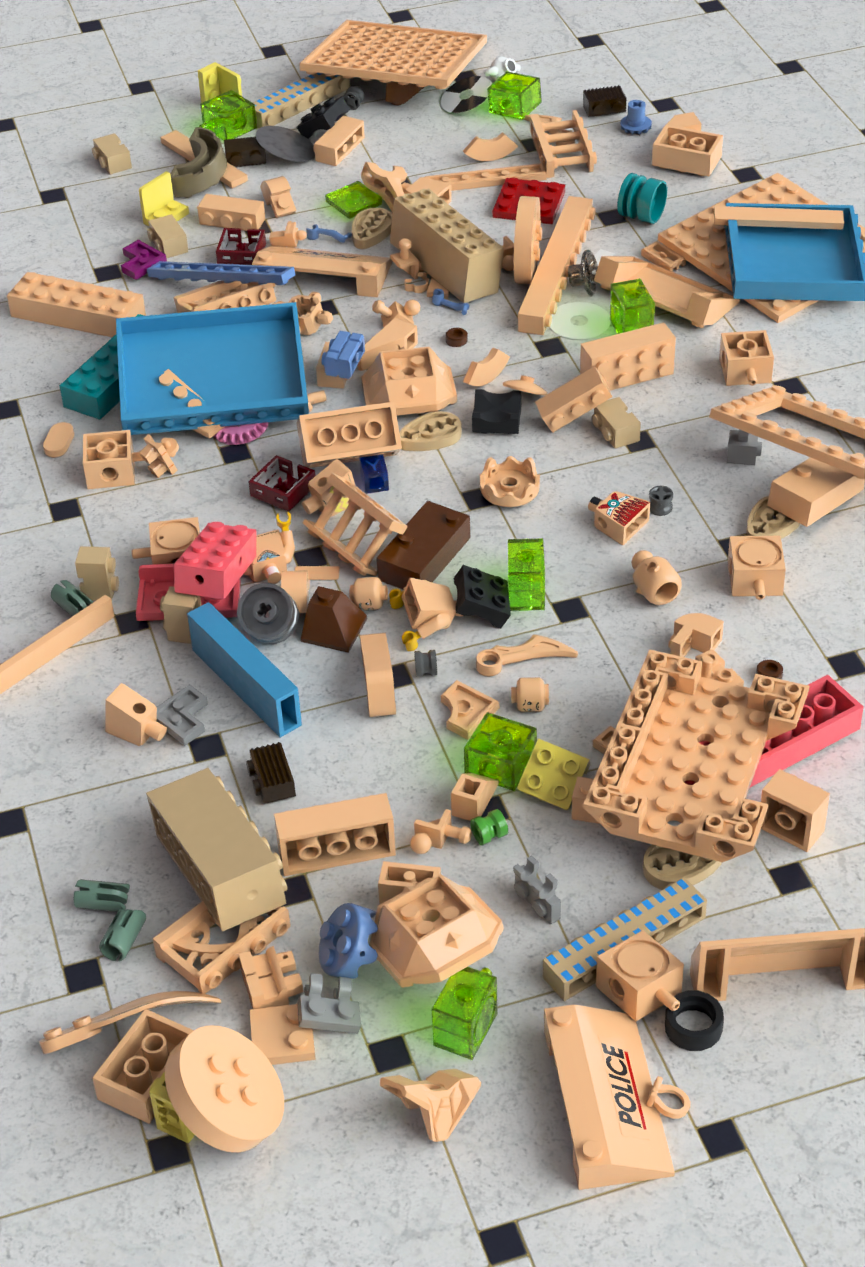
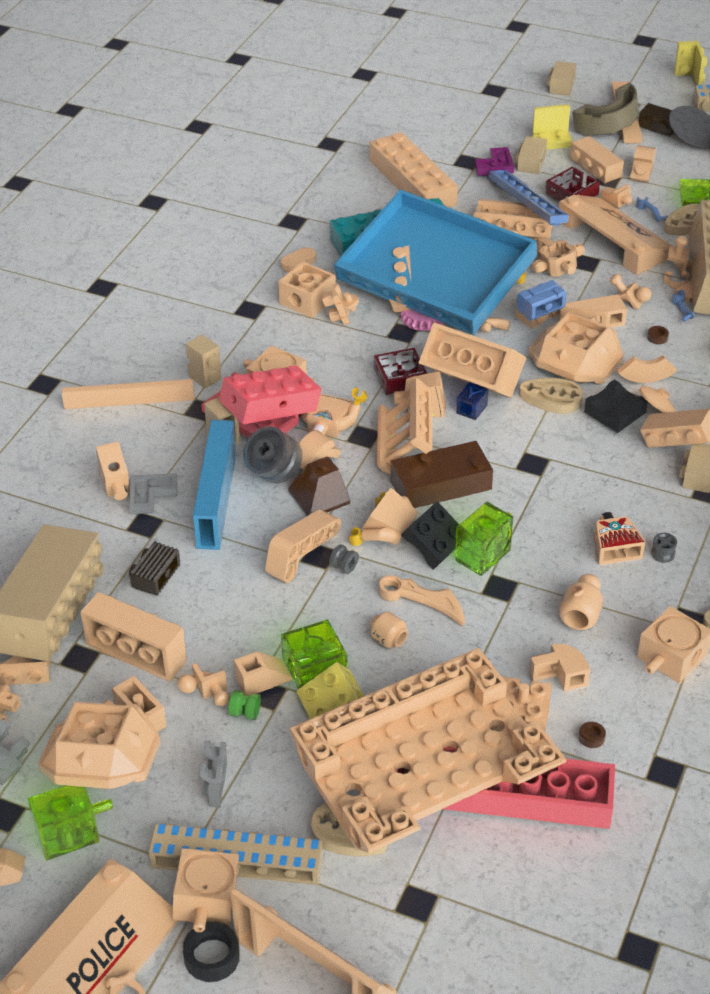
camera: 40 degrees right, 0 degrees up
(69, 598) = (176, 368): sand green arm -> none
(228, 115) = (674, 87): clear neon green piece -> none
(320, 572) = (355, 449): light nougat sticker -> none
(344, 938) = (55, 704): medium blue plate -> none
(368, 593) = (363, 484): light nougat head -> none
(466, 708) = (340, 609): light nougat tile -> none
(511, 471) = (559, 455): light nougat plate -> none
(794, 810) = (465, 850): light nougat brick -> none

